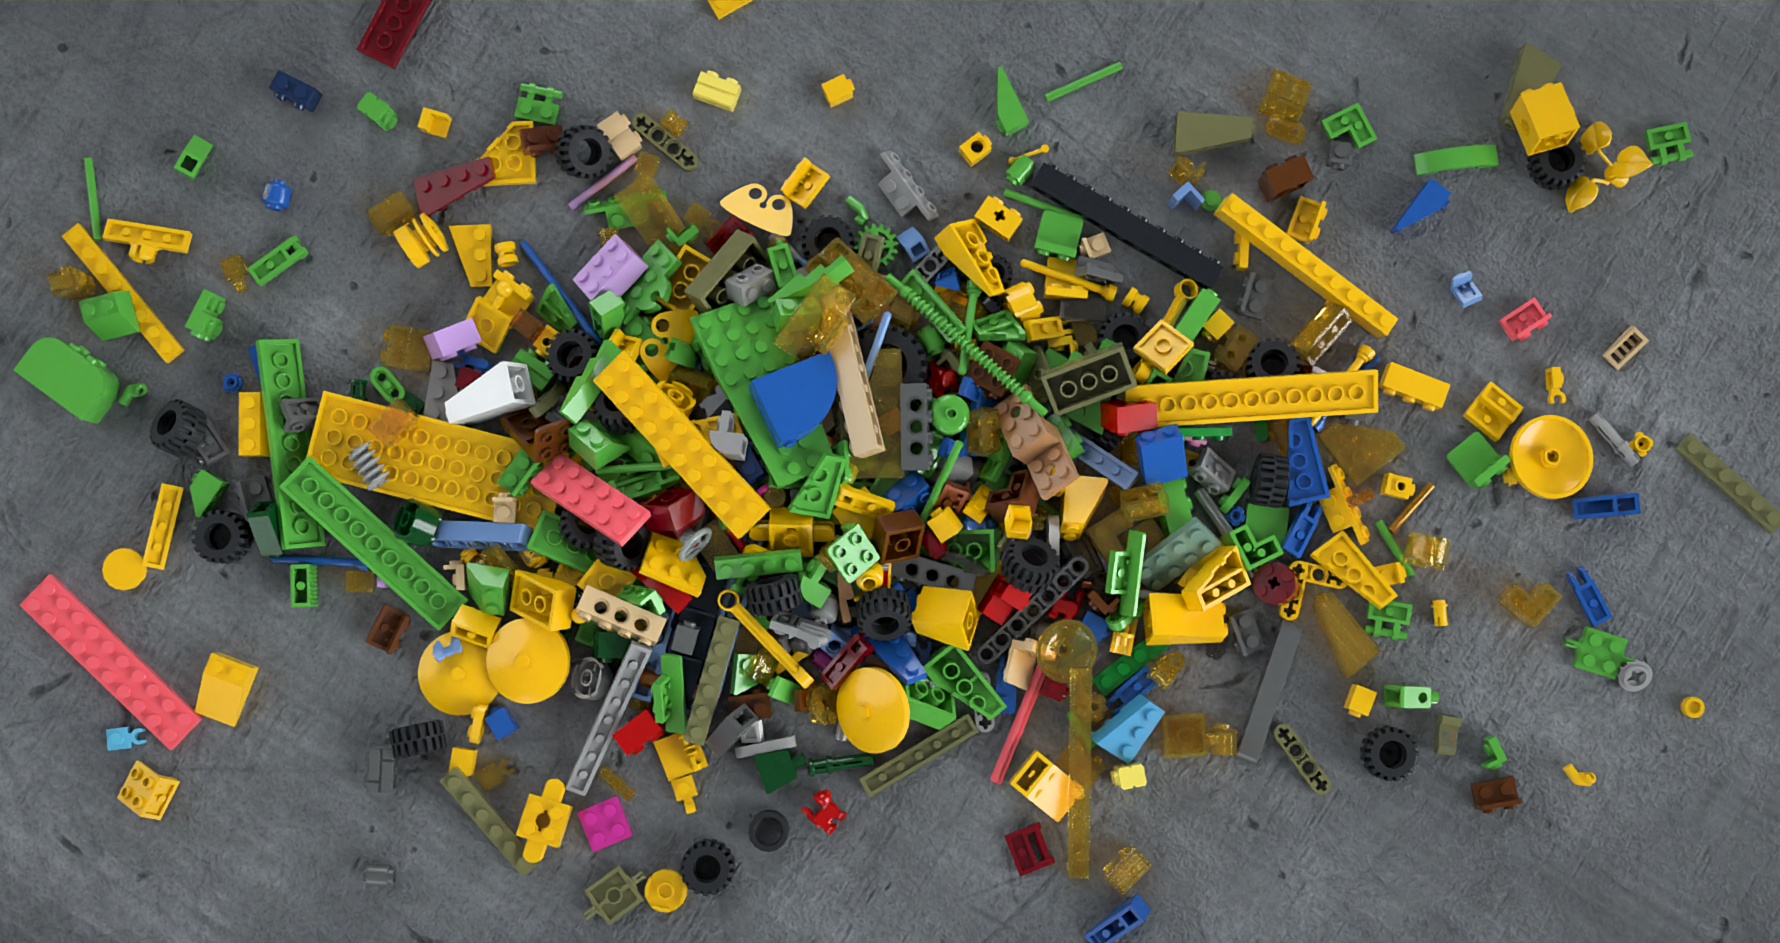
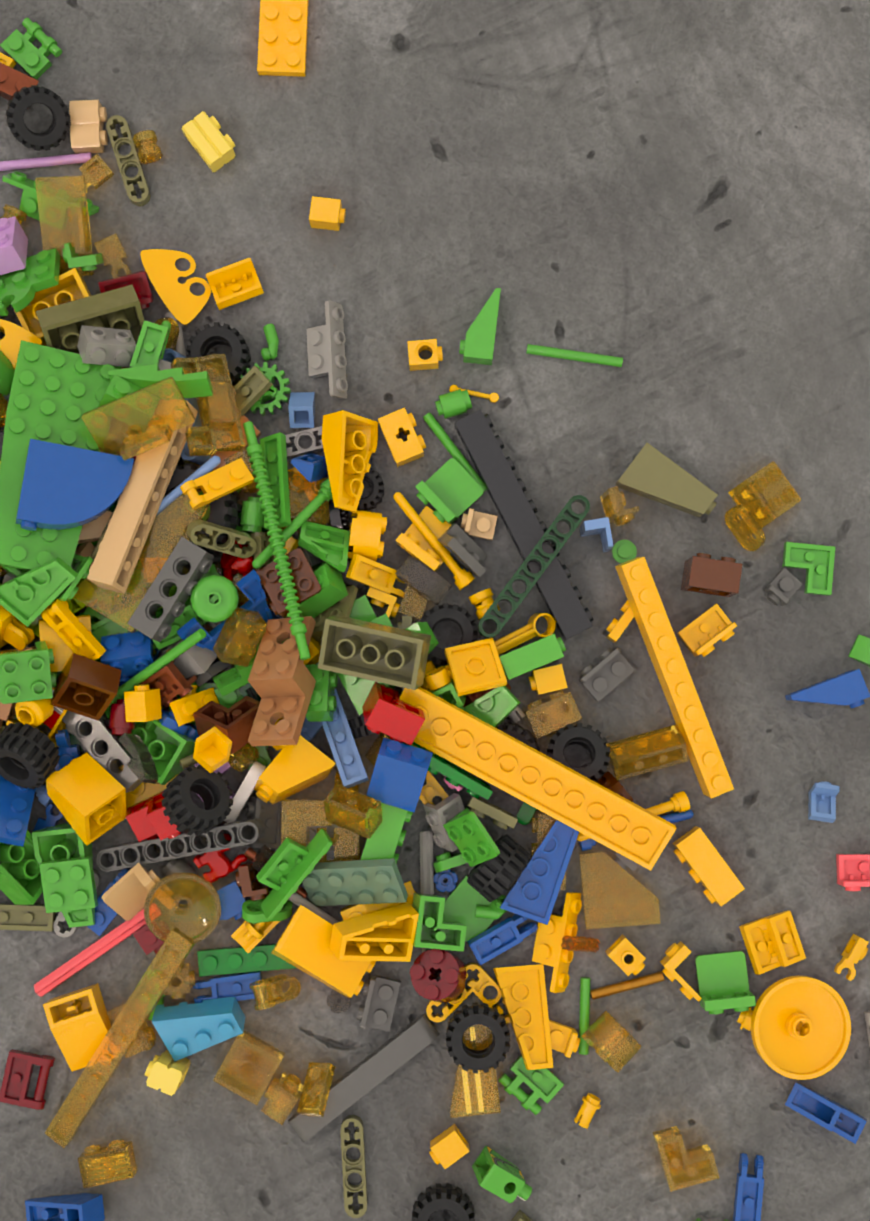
camera: 40 degrees right, 0 degrees up
(899, 330) = (217, 483): none -> yellow plate
(920, 365) = (214, 531): none -> olive beam
(972, 688) = (68, 884): none -> bright green plate
(1160, 241) = (543, 559): none -> dark green beam
(1239, 468) = (471, 838): none -> bright green bracket
(1241, 719) = (316, 1089): none -> clear yellow plate
(1246, 444) = (500, 817): none -> olive plate
(1284, 514) = (492, 911): none -> bright green arm
(1350, 602) = (484, 1058): none -> black tyre
(1431, 464) = (674, 956): none -> yellow bracket

